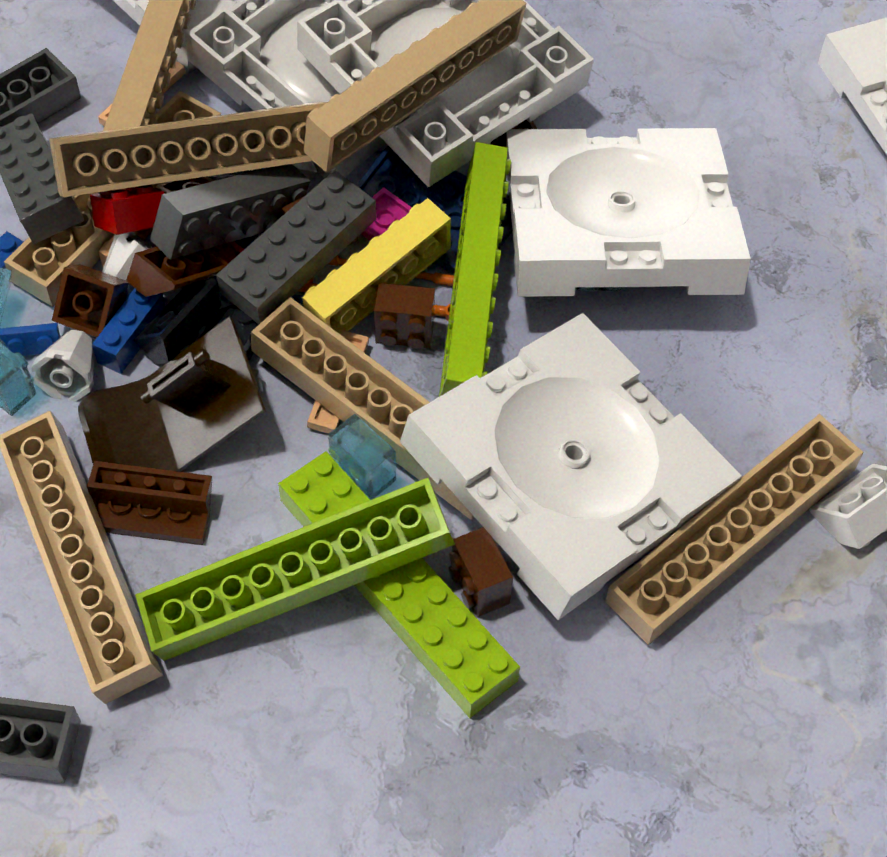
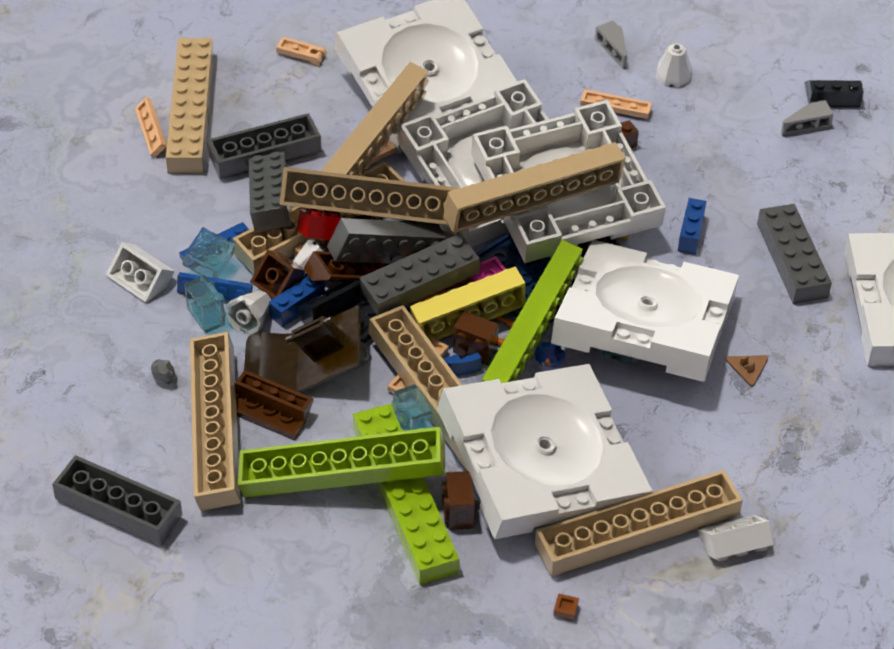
camera: 20 degrees right, 10 degrees down
(406, 357) = (464, 366): none -> blue slope
(512, 310) = (549, 354): none -> clear blue head
(619, 75) = (692, 226): none -> blue brick
(690, 687) = (566, 606): none -> dark orange plate
(763, 79) = (794, 253): none -> dark grey brick
(772, 252) = (748, 366): none -> medium nougat piece

